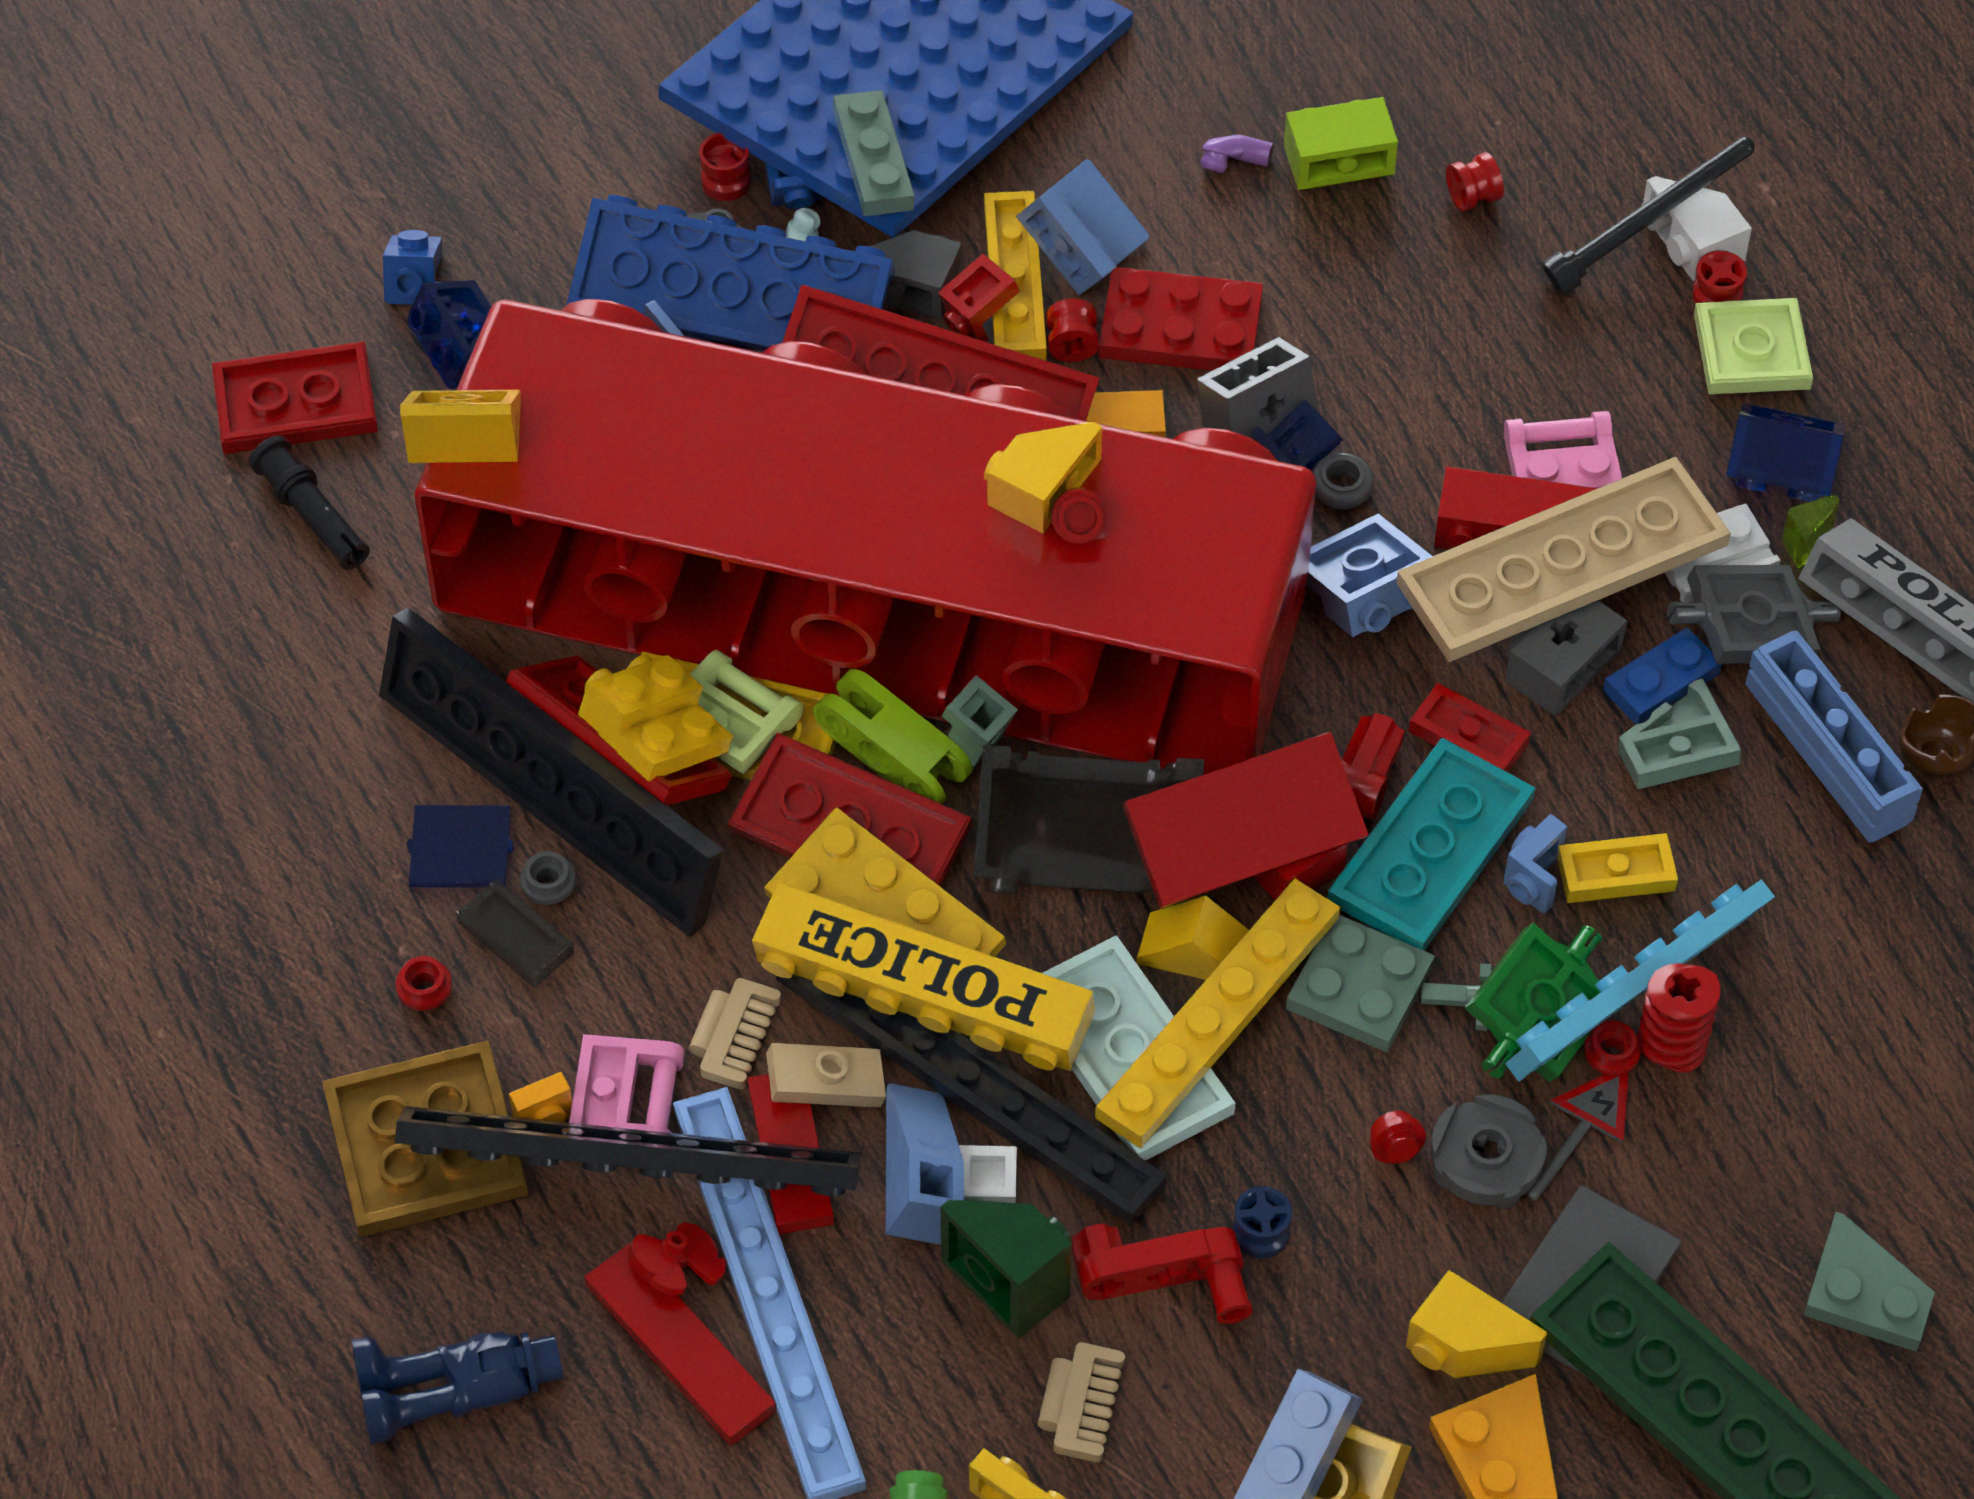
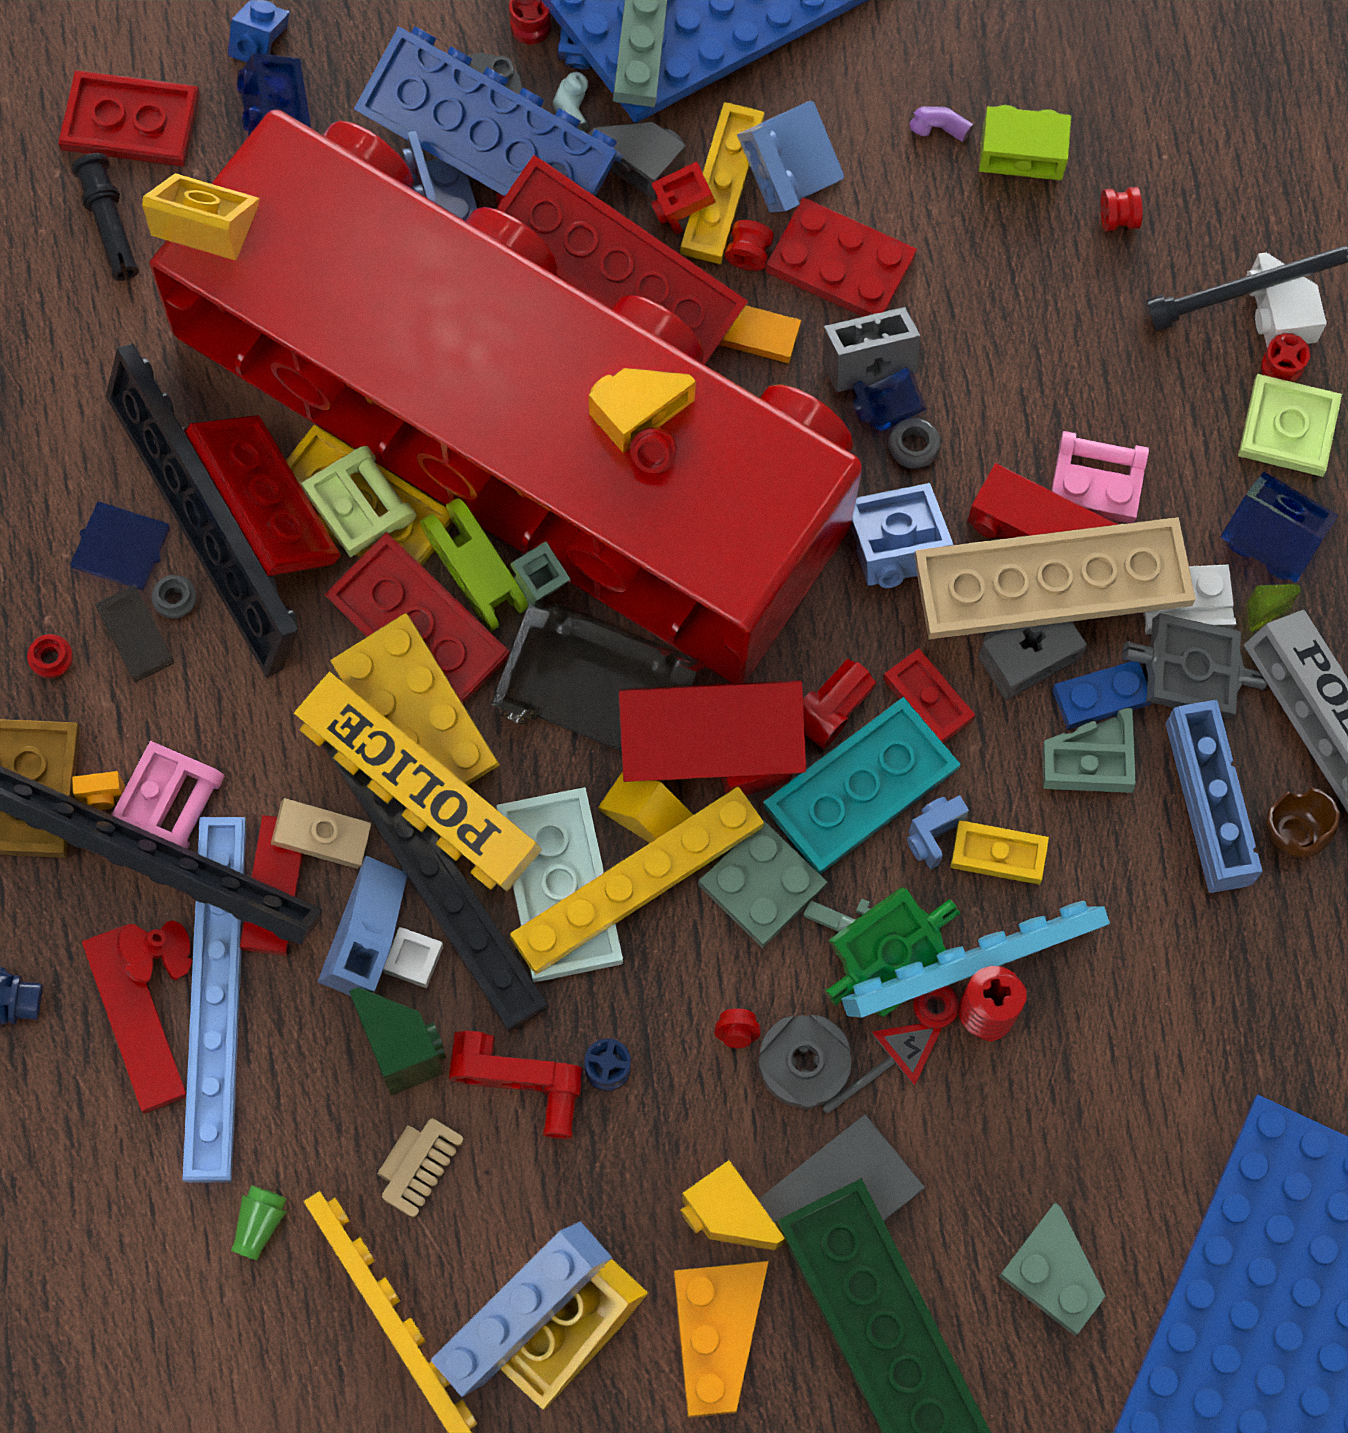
camera: 15 degrees right, 15 degrees up
(653, 716) = (286, 497): yellow plate -> none
(720, 1028) = (259, 764): tan piece -> none

